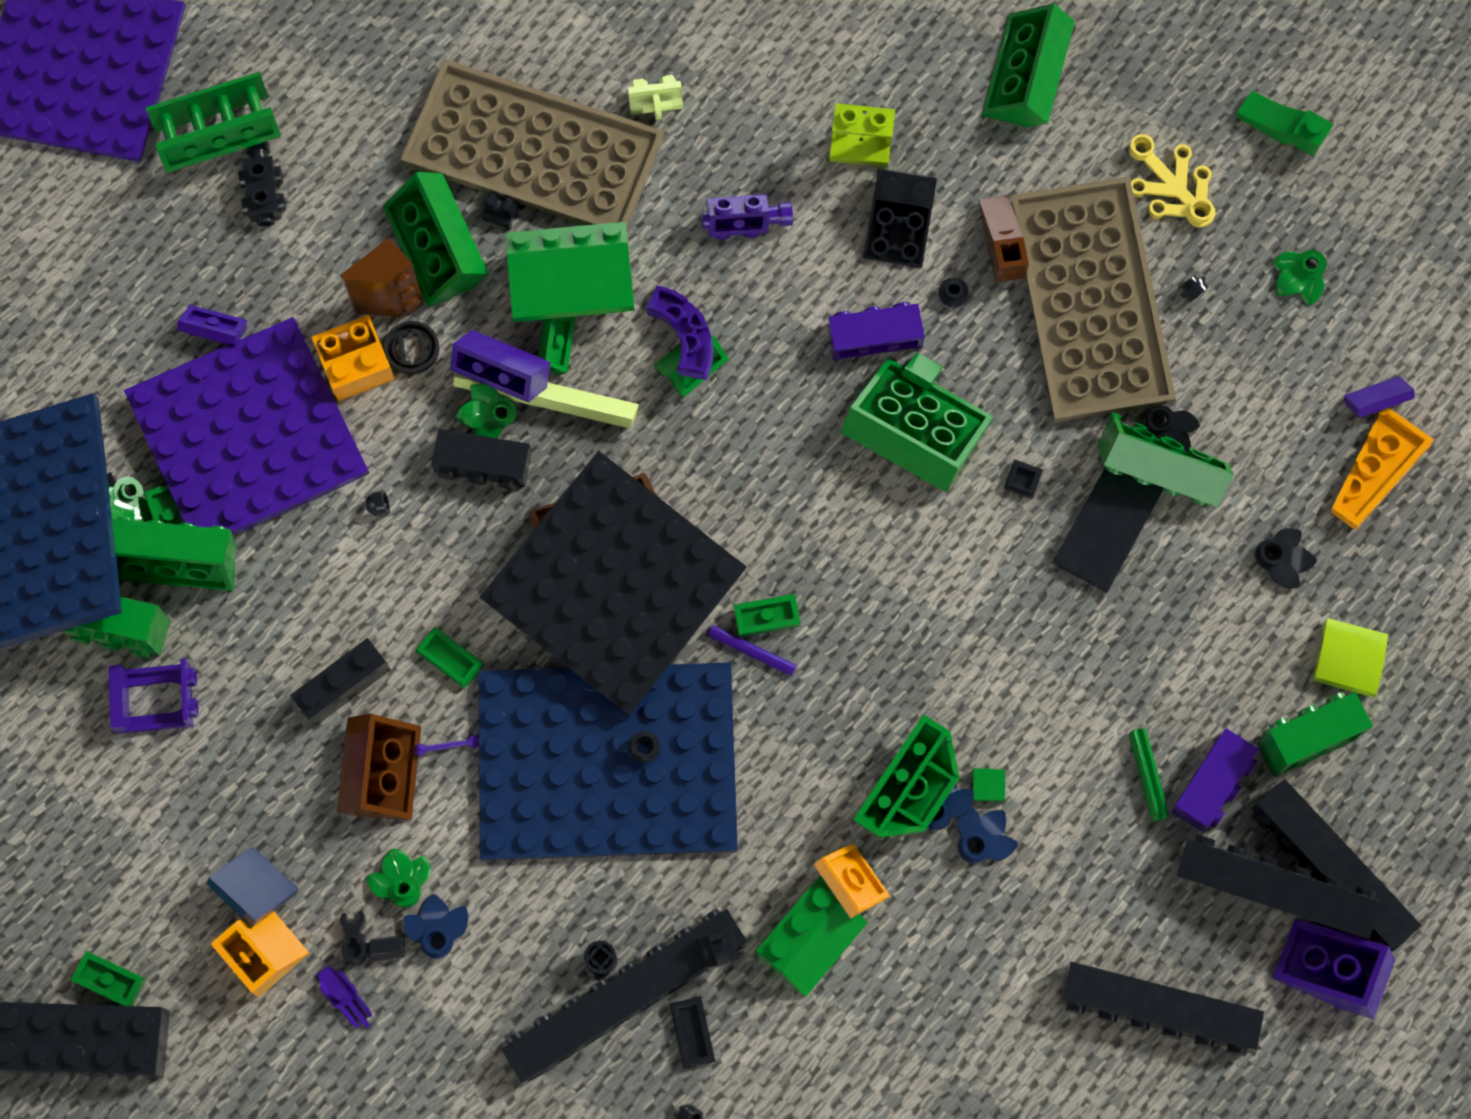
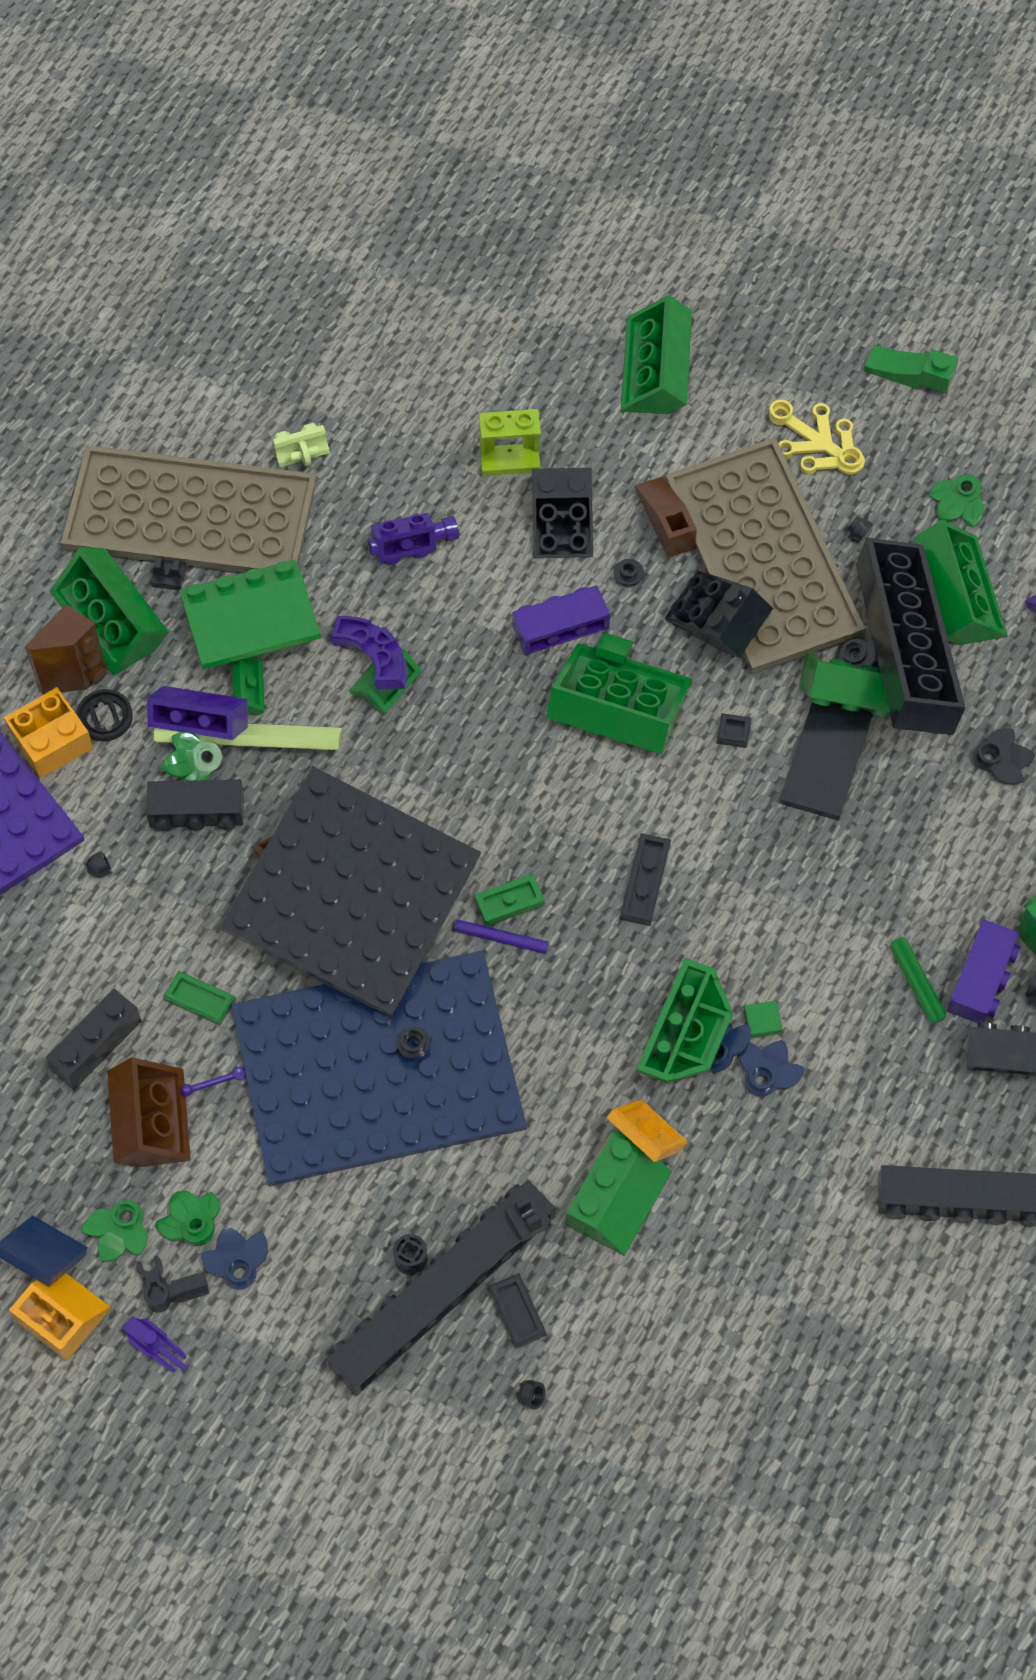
camera: 10 degrees left, 10 degrees down
(326, 880) = (114, 1234): none -> green plate
(904, 618) = (645, 879): none -> black tile
(1033, 355) = (719, 612): none -> black slope
(1216, 422) = (909, 637): none -> black brick
(1281, 367) = (962, 584): none -> green slope

